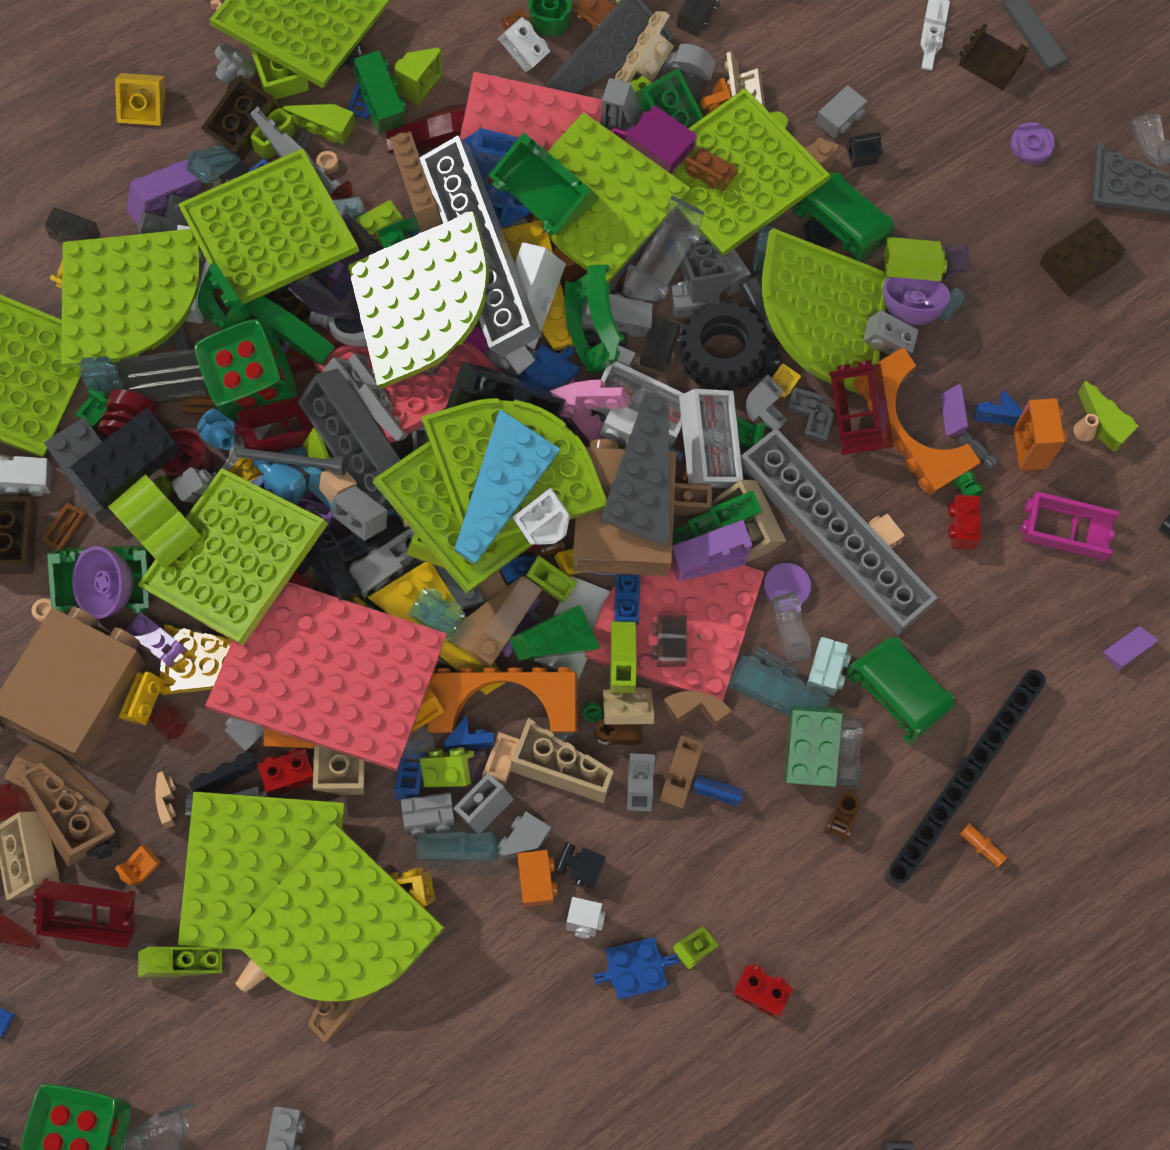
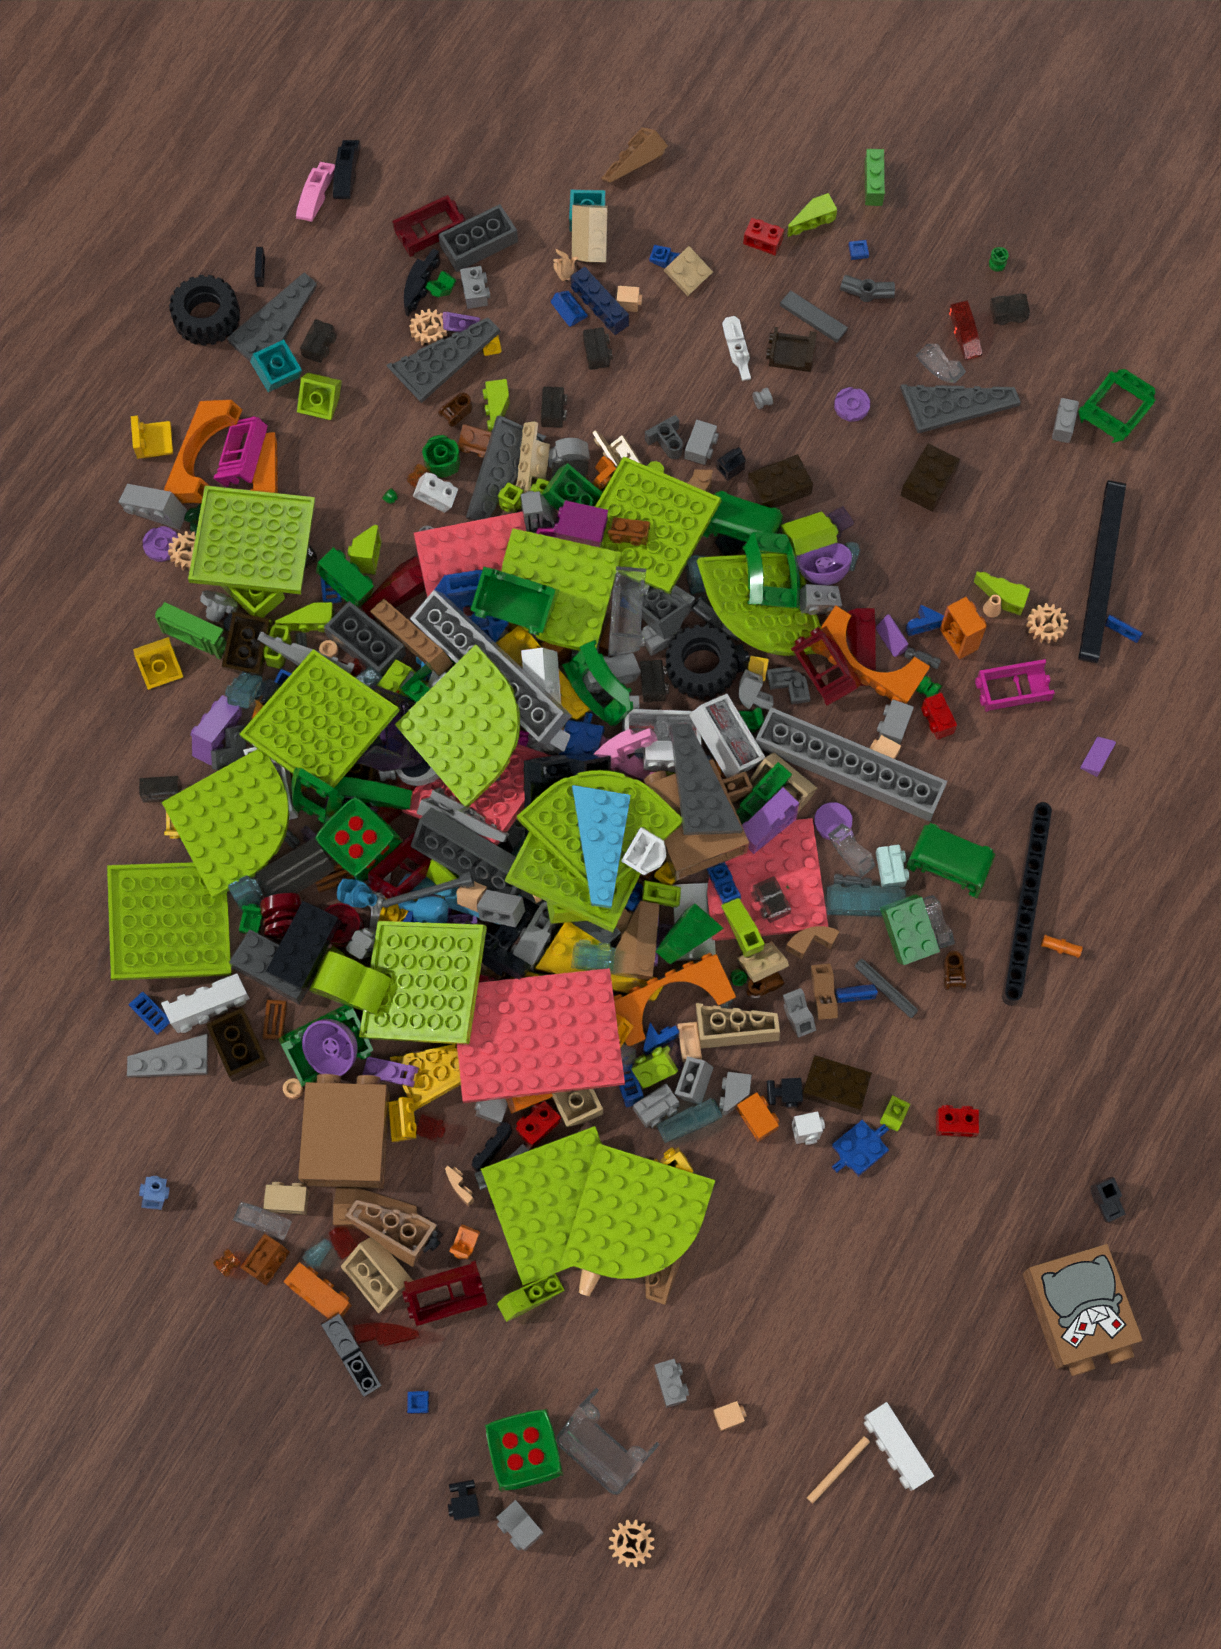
camera: 20 degrees left, 0 degrees up
(188, 75) = (191, 630): none -> bright green door
(368, 165) = (364, 639): none -> dark grey brick
(475, 31) = (390, 496): none -> green hinge
(598, 81) = (510, 498): none -> lime brick
(643, 883) = (836, 1085): none -> dark brown brick
(755, 801) = (886, 988): none -> dark grey axle
(806, 97) = (666, 441): none -> dark grey tile
(831, 303) = (765, 595): none -> green wedge
(909, 192) = (780, 483): none -> dark brown brick
(912, 506) = (896, 721): none -> light grey brick
(916, 397) = (862, 637): none -> dark red wedge
(934, 94) = (762, 398): none -> light grey wheel
(1109, 26) = (876, 289): none -> dark grey piece
(1141, 470) = (1044, 616): none -> light nougat gear

